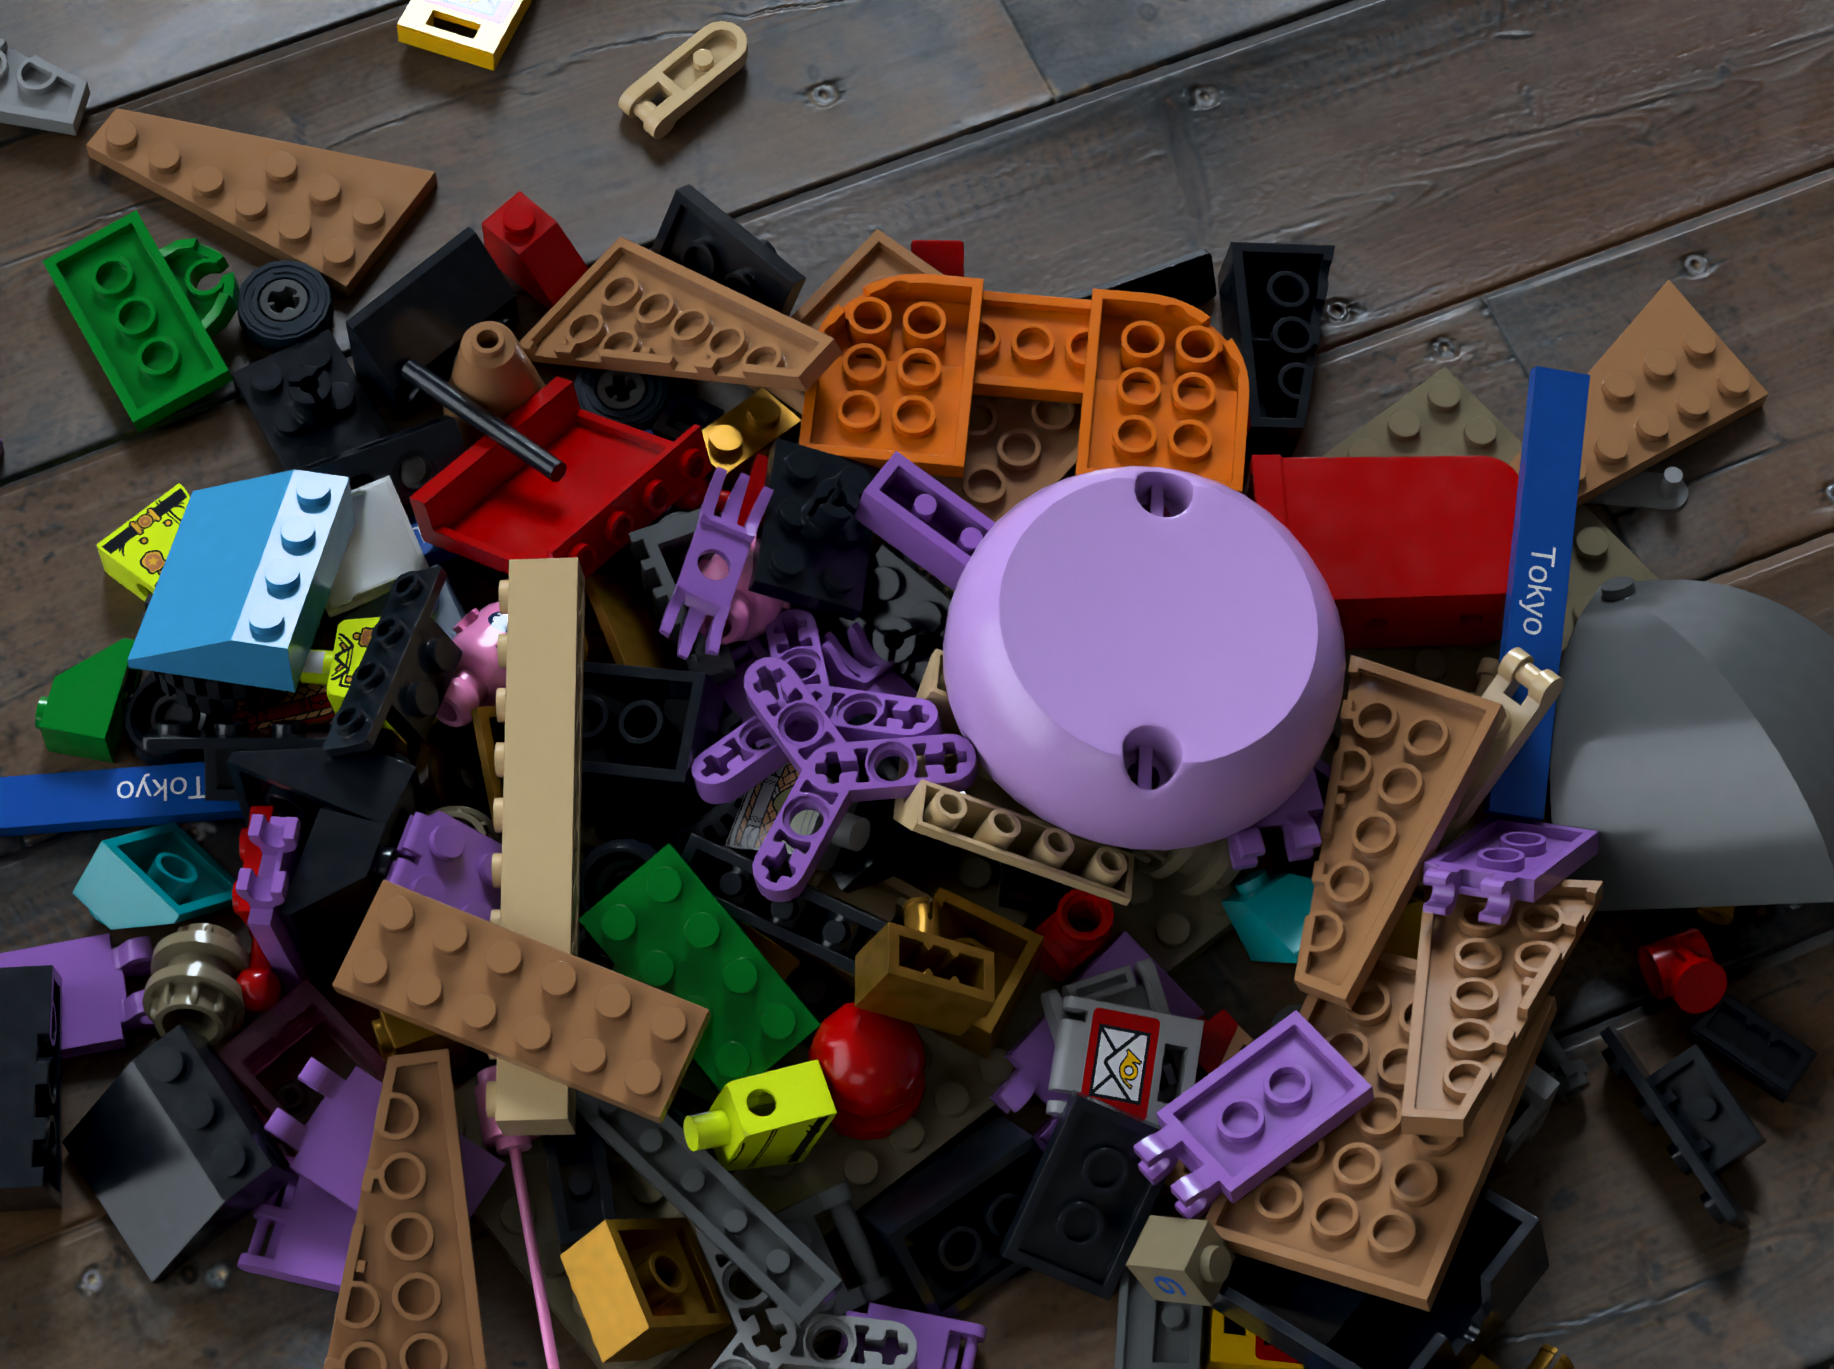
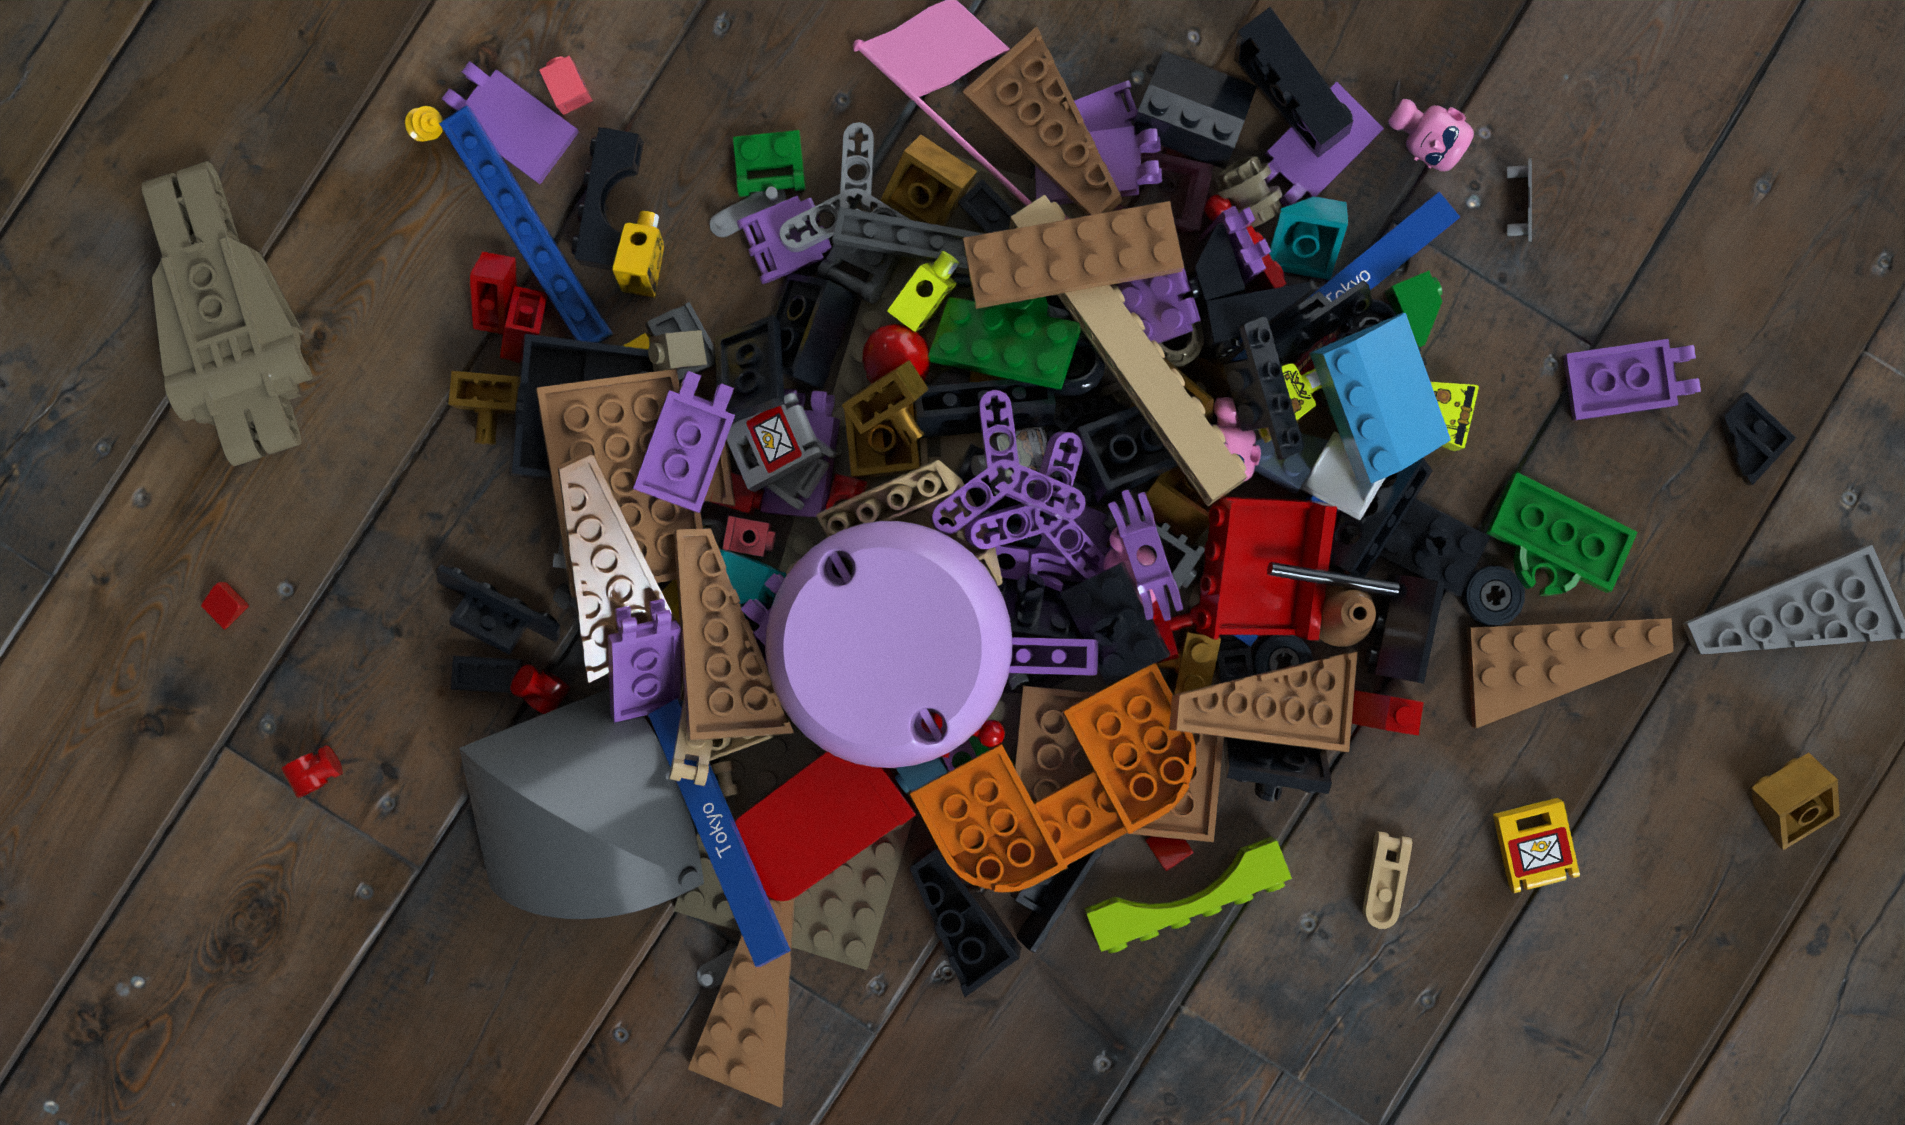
camera: 145 degrees right, 25 degrees up
(853, 181) = (1252, 870): none -> lime arch
(1249, 1006) = (735, 533): none -> coral brick

